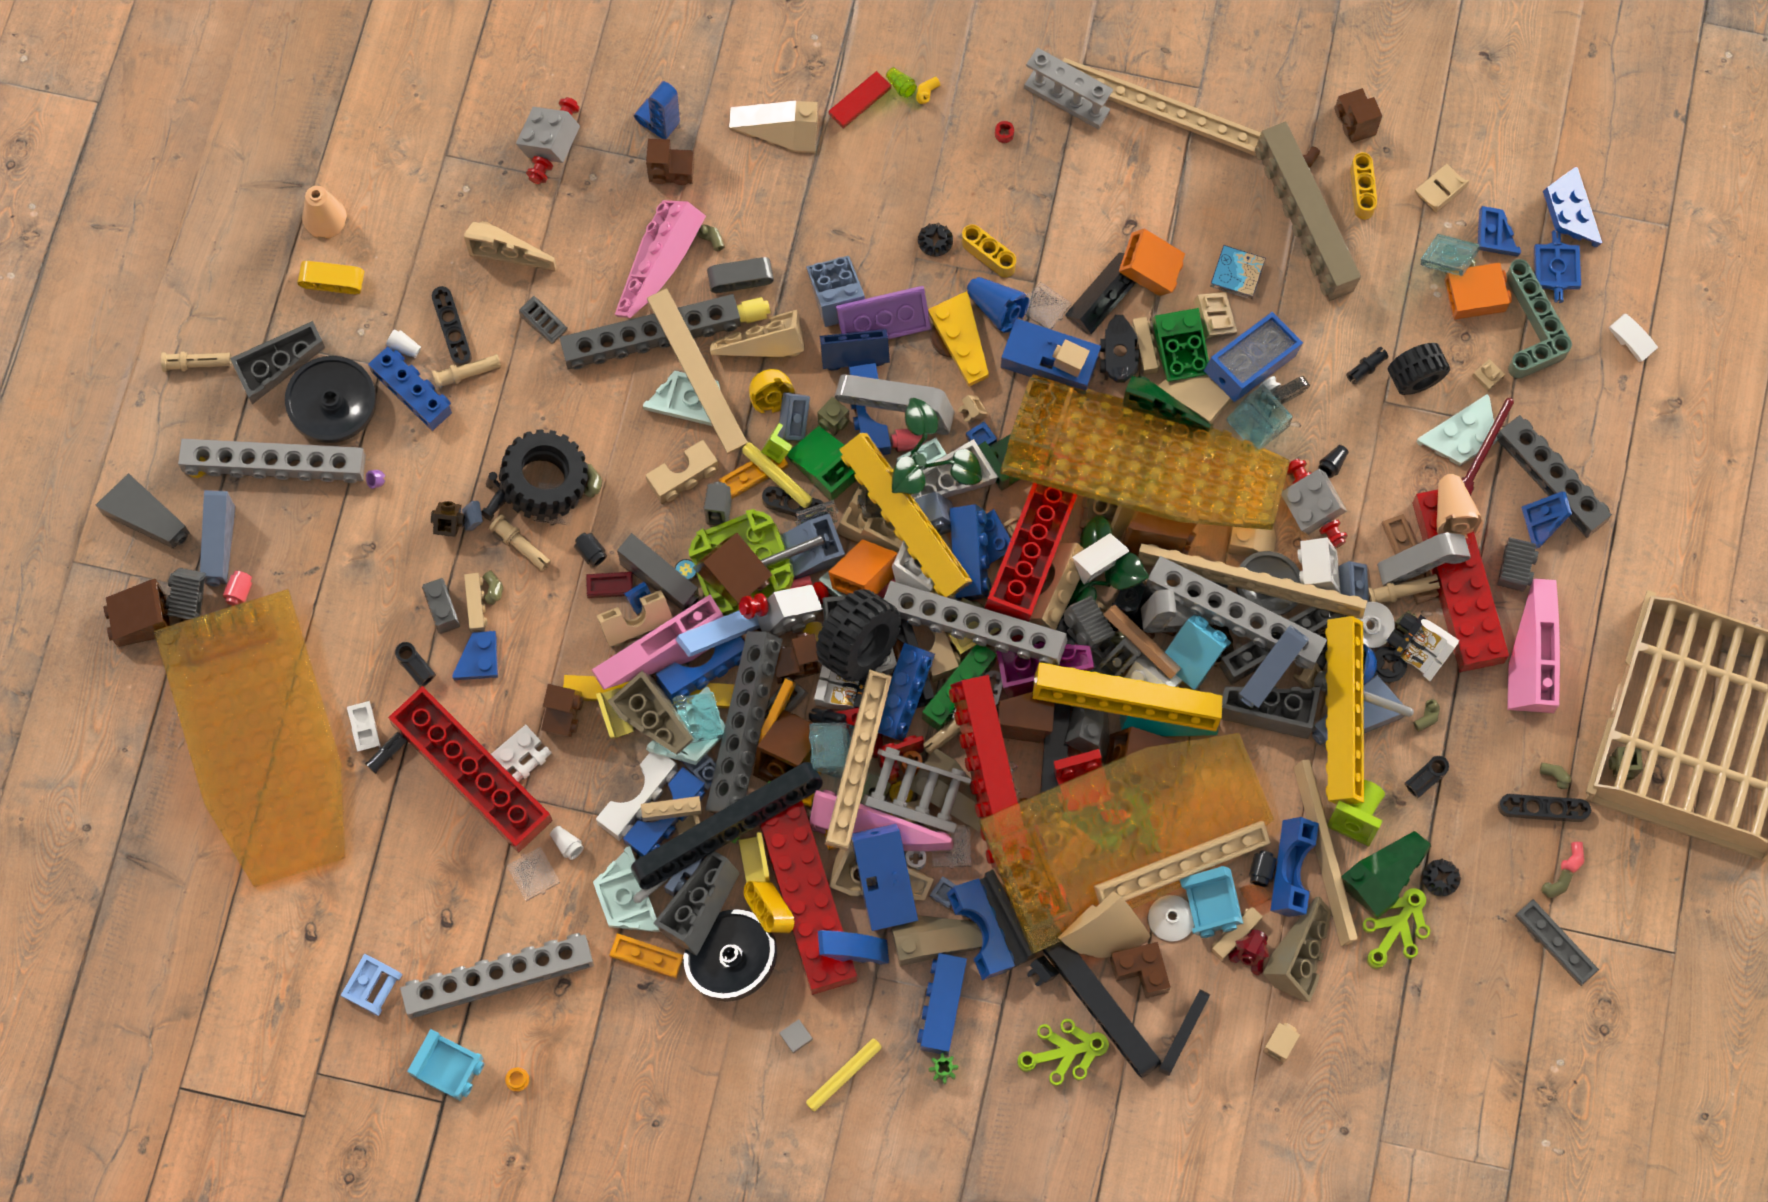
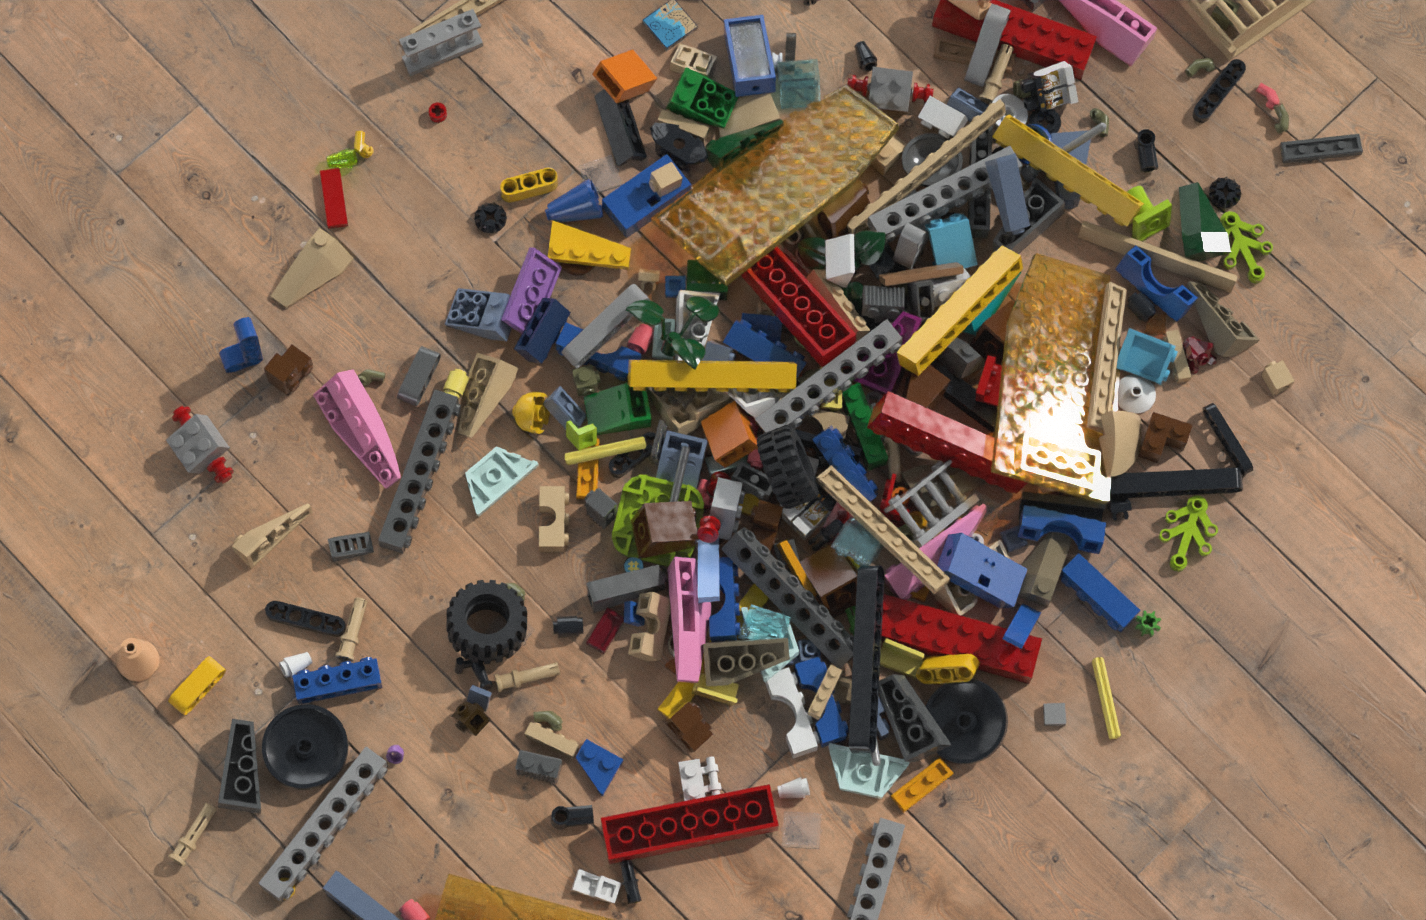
camera: 60 degrees left, 0 degrees up
(697, 371) = (480, 455): tan tile -> none

